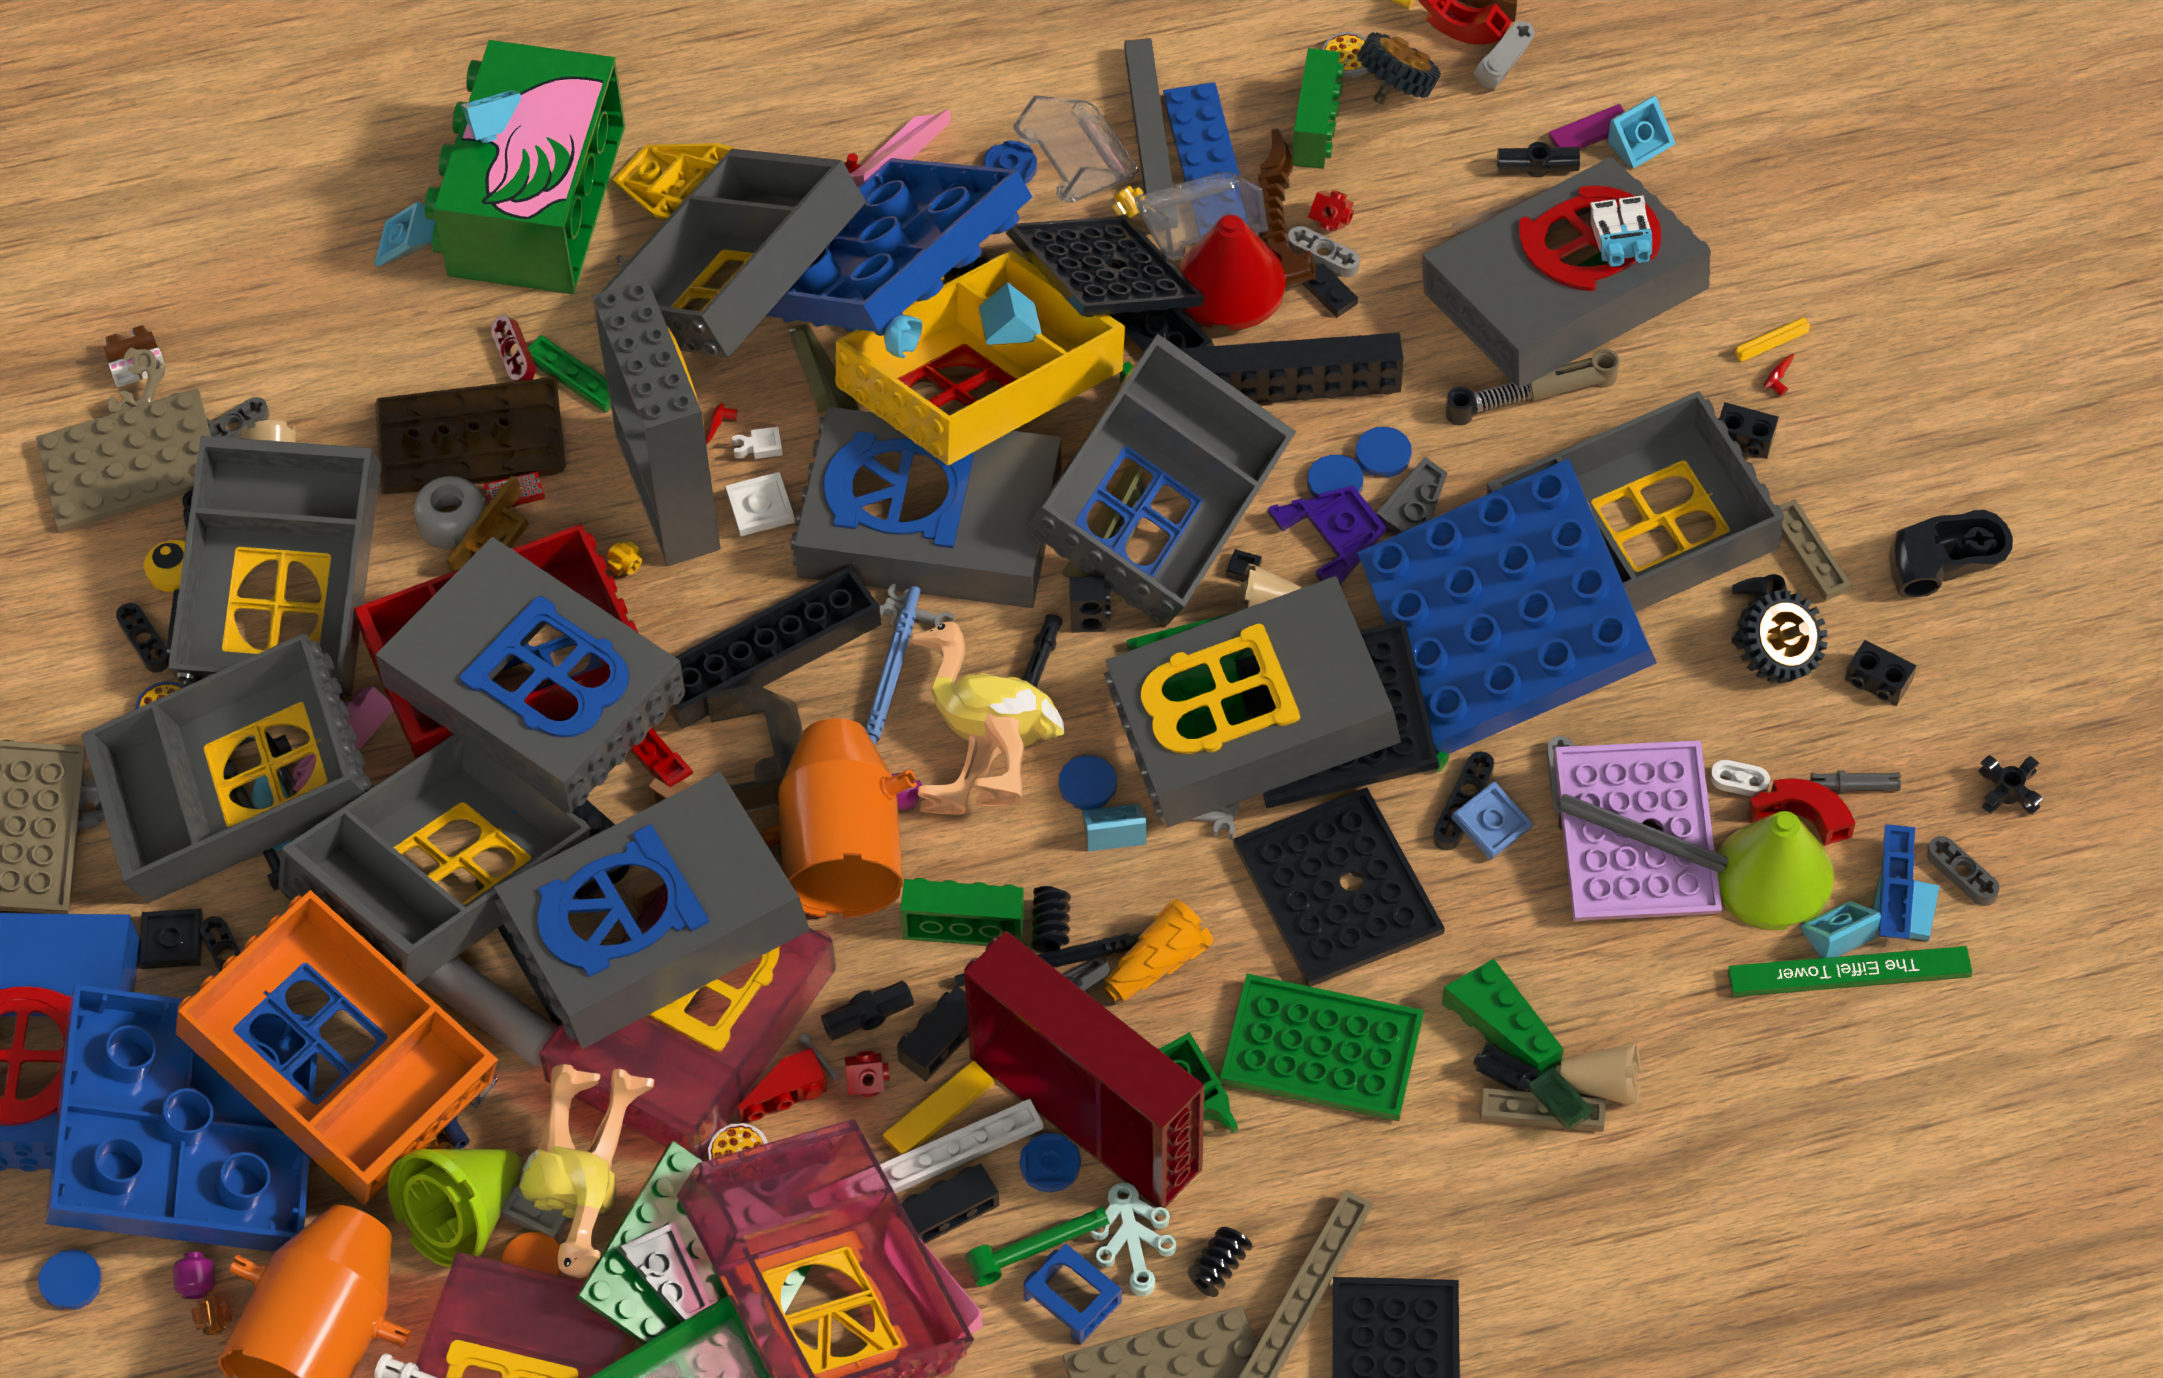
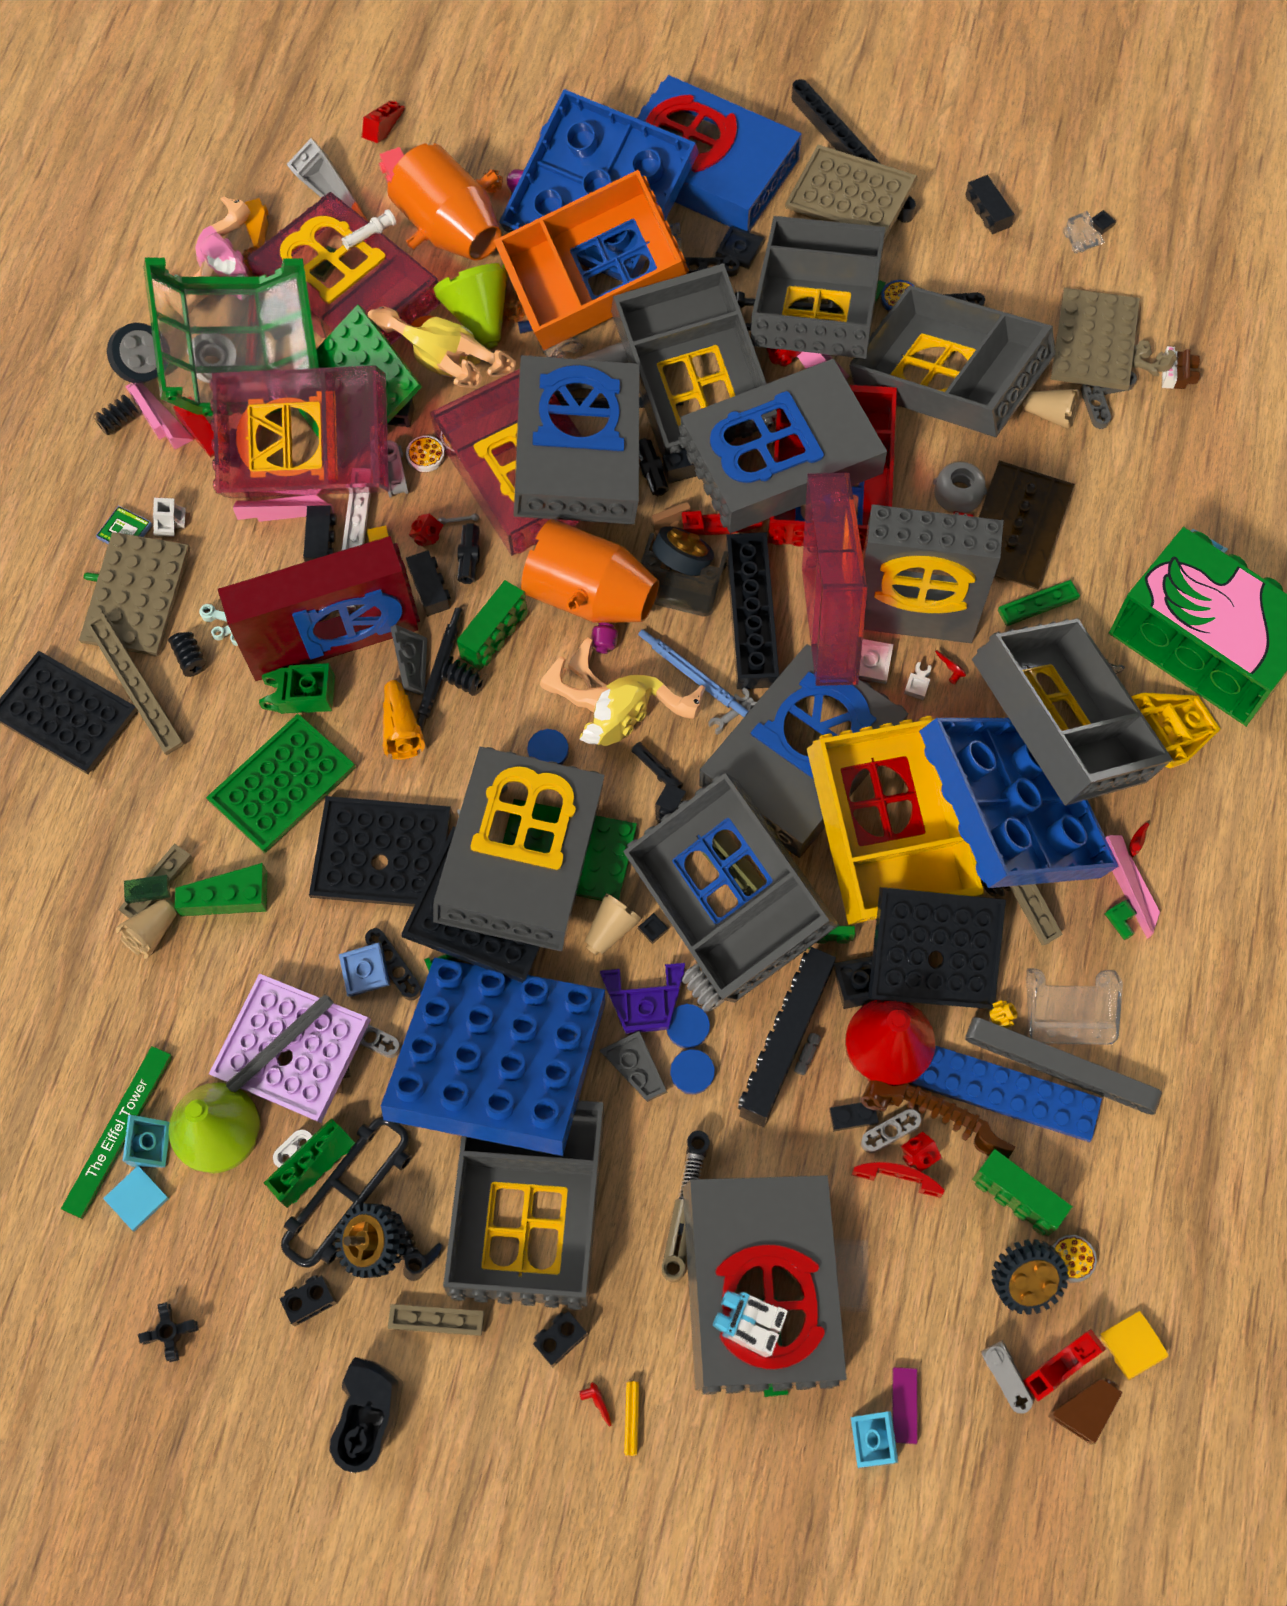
camera: 120 degrees right, 10 degrees up
(490, 114) = (1249, 582): medium azure slope -> none
(495, 522) = (928, 495): pearl gold bracket -> none
(507, 325) = (1074, 573): dark red beam -> none
(668, 1270) = (352, 352): wing -> none
(731, 743) = (682, 550): none -> black wheel
(777, 487) = (833, 579): none -> clear pink panel
(789, 1082) = (448, 495): red slope -> none
(902, 335) = (914, 748): medium azure hair -> none
(942, 149) = (1119, 916): none -> green piece
(986, 1263) = (269, 539): green piece -> none
(1009, 317) = (907, 847): medium azure slope -> none
(1013, 156) = (1084, 957): blue tile -> none
(1080, 1323) = (209, 585): blue panel -> none
(1114, 827) = (508, 737): medium azure slope -> none
(1190, 209) = (963, 1047): clear windscreen -> none
(1283, 479) = (702, 988): none -> light grey piece
(1376, 244) = (927, 1184): none -> red slope
(1505, 1068) = (200, 870): black hinge -> none
(1538, 159) = (886, 1355): black piece -> none
(1758, 745) = (309, 1163): none -> green wedge
(1810, 801) = (248, 1183): red arch -> none
(1818, 686) = (327, 1249): none -> black bar
(1858, 781) = (243, 1223): dark grey pin -> none
(1897, 882) = (148, 1198): blue slope -> none
(1957, 858) = (116, 1253): dark grey beam -> none

